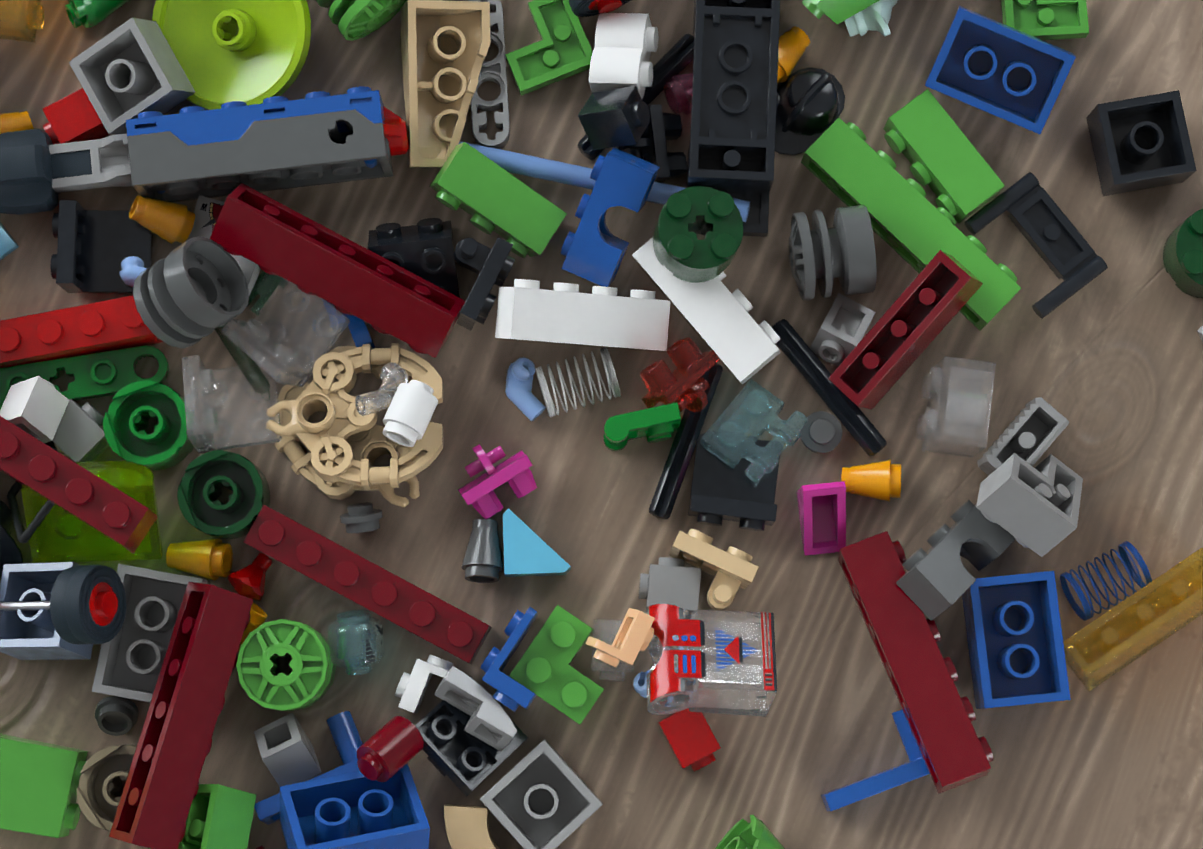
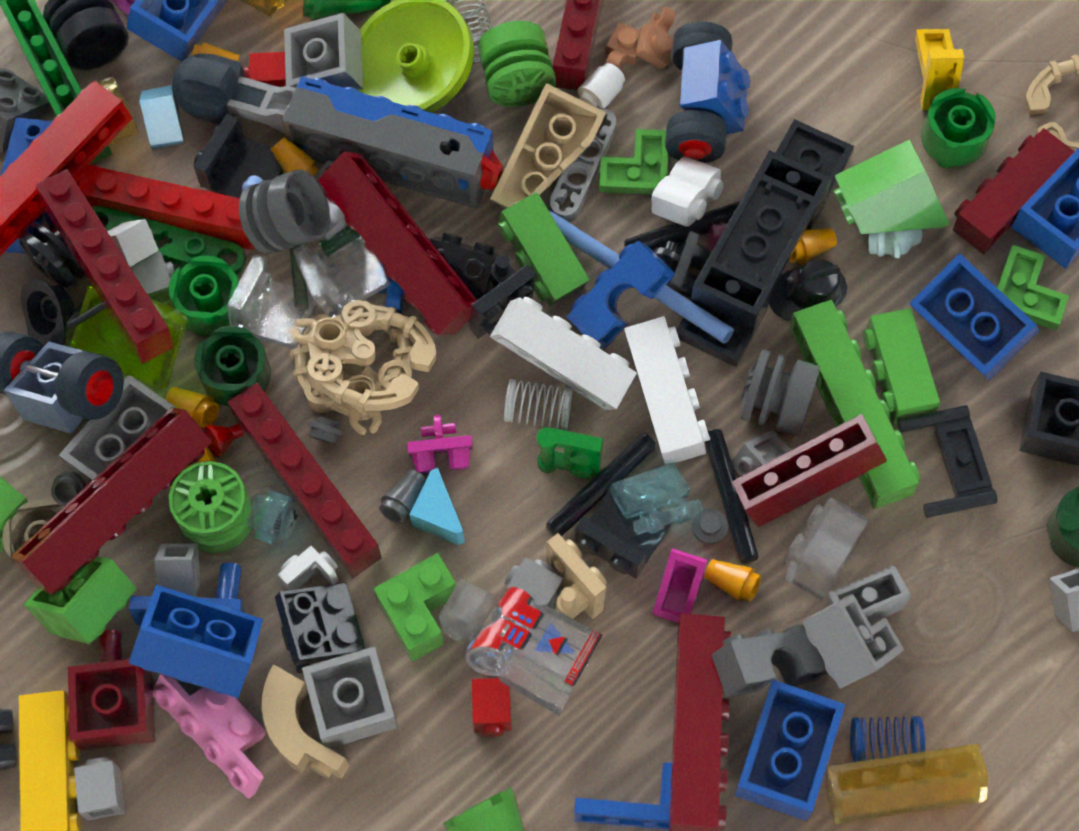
camera: 30 degrees right, 15 degrees down
(380, 400) = (389, 344): clear arm -> none
(389, 749) = (253, 599): dark red brick -> none
(409, 413) = (397, 360): white brick -> none
(487, 718) = (339, 610): light grey slope -> none
(507, 689) = (373, 572): blue bracket -> none
(519, 388) = (492, 393): light blue arm -> none
(614, 117) = (658, 225): black brick -> none
(631, 638) = (483, 600): light nougat bracket -> none
(681, 383) = (630, 425): clear red hips -> none
(711, 214) = (679, 327): dark green brick -> none

